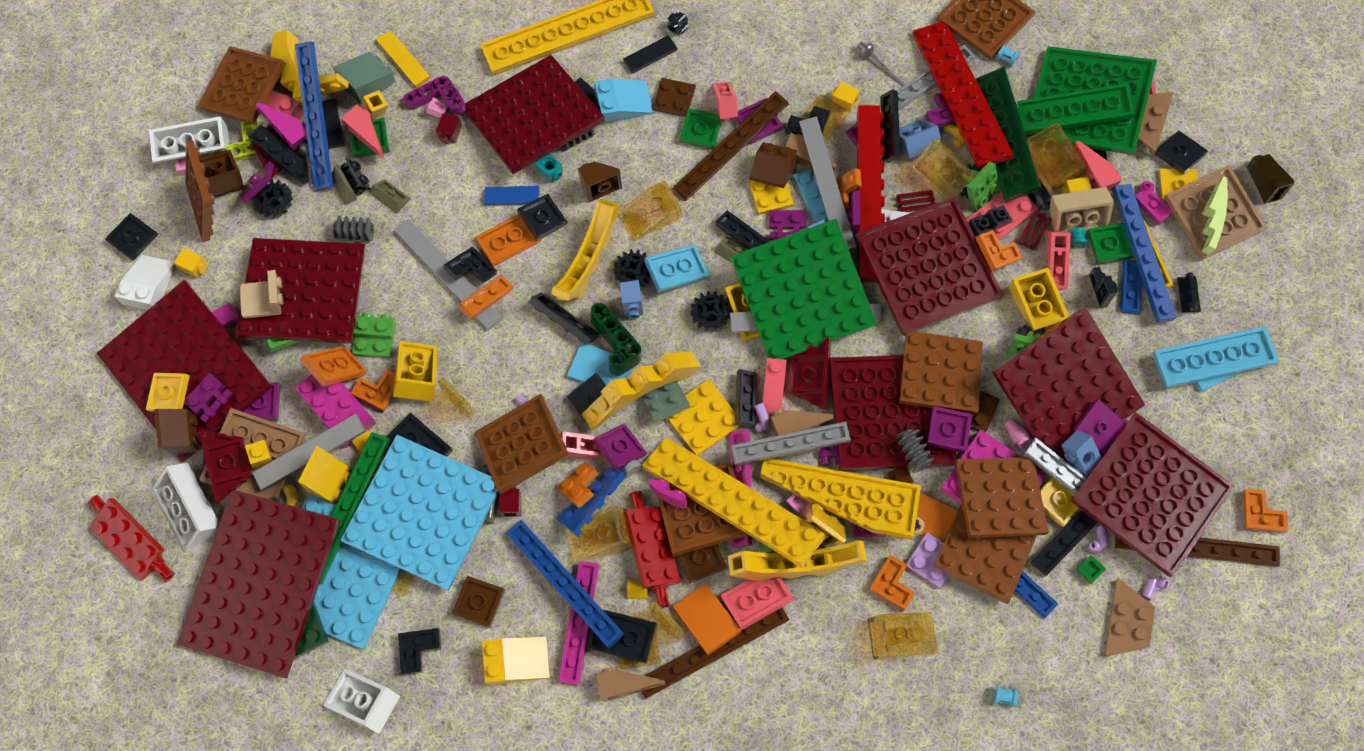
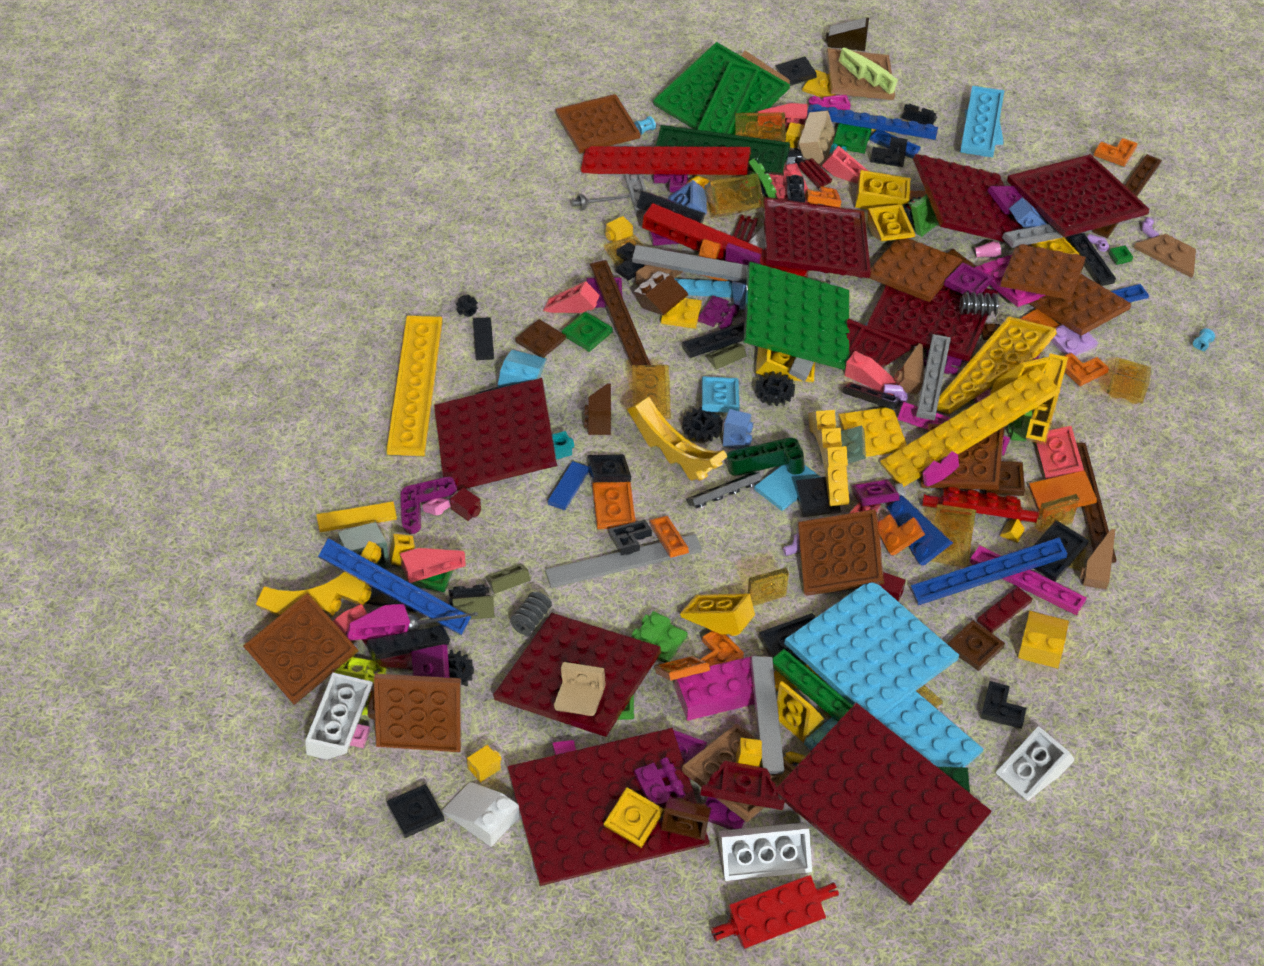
camera: 70 degrees left, 20 degrees down
(535, 613) = (1004, 609): none -> dark red plate
(987, 326) = (889, 223): none -> yellow slope

